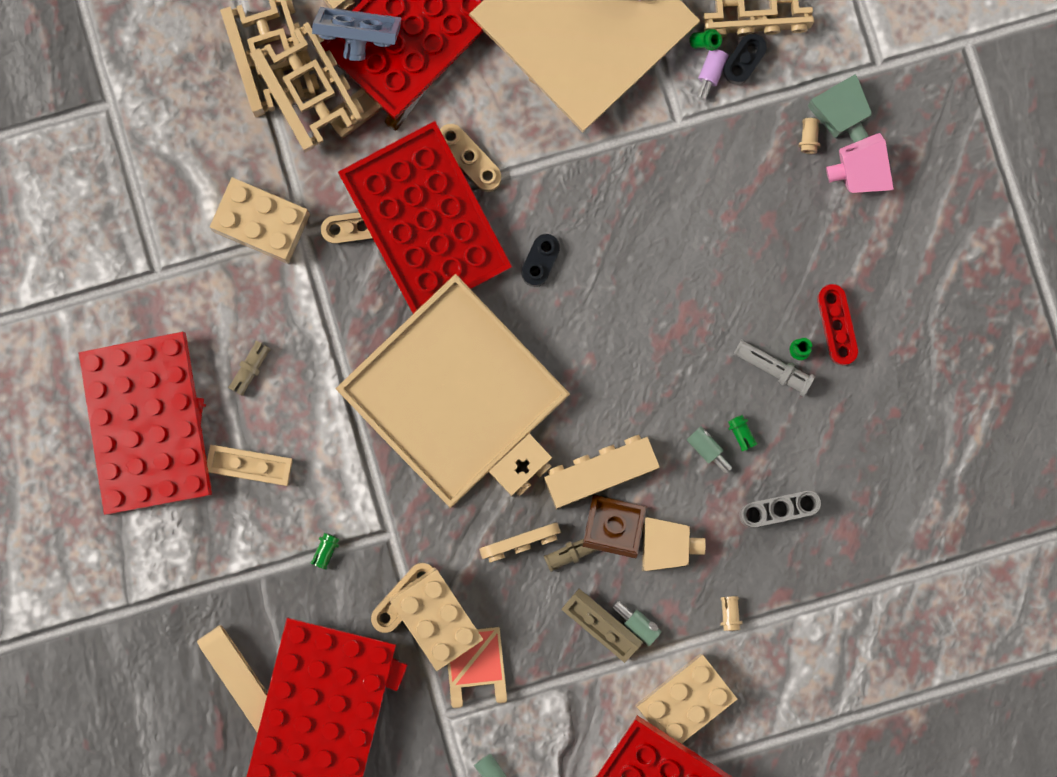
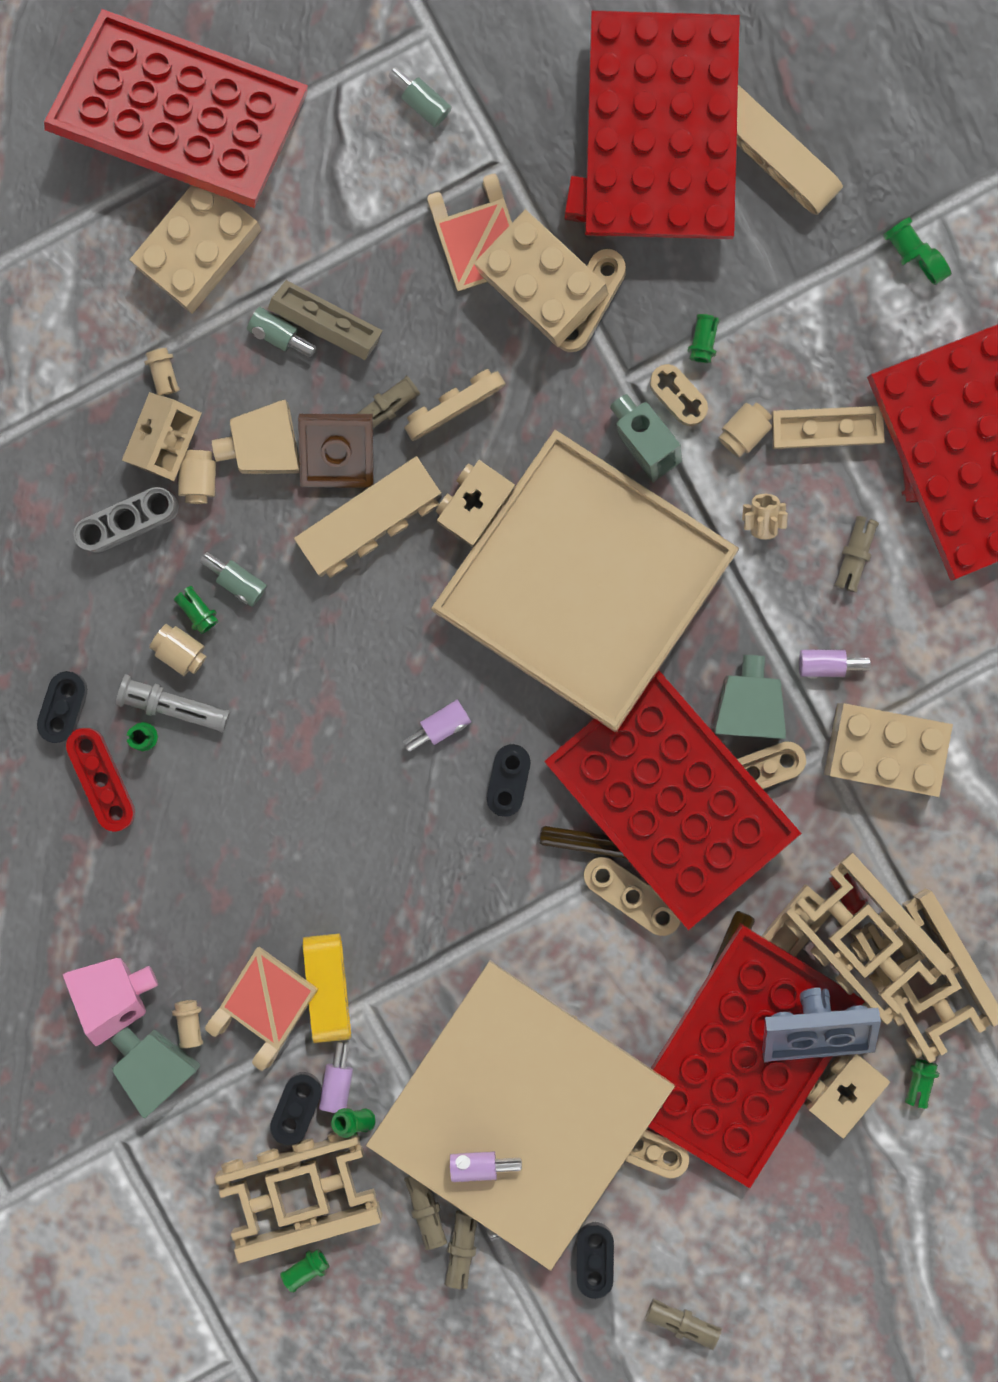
camera: 170 degrees right, 5 degrees up
(156, 584) = (911, 247): none -> green connector
(287, 293) = (829, 663): none -> lavender piece
(309, 477) = (745, 429): none -> tan brick
(310, 117) = (853, 899): none -> red pin
(310, 409) = (765, 516): none -> tan gear
(347, 517) = (684, 388): none -> tan beam
(352, 275) = (751, 703): none -> sand green torso
(379, 475) = (653, 449): none -> sand green torso
(500, 205) = (578, 841): none -> dark brown axle
(581, 310) = (439, 725): none -> lavender piece
(704, 139) = (330, 1003): none -> yellow beam
(721, 530) = (197, 477): none -> tan brick
(741, 564) = (161, 436): none -> tan brick
(749, 138) = (266, 1001): none -> flag
(761, 405) = (178, 650): none -> tan brick
(854, 384) = (59, 705): none -> black plate

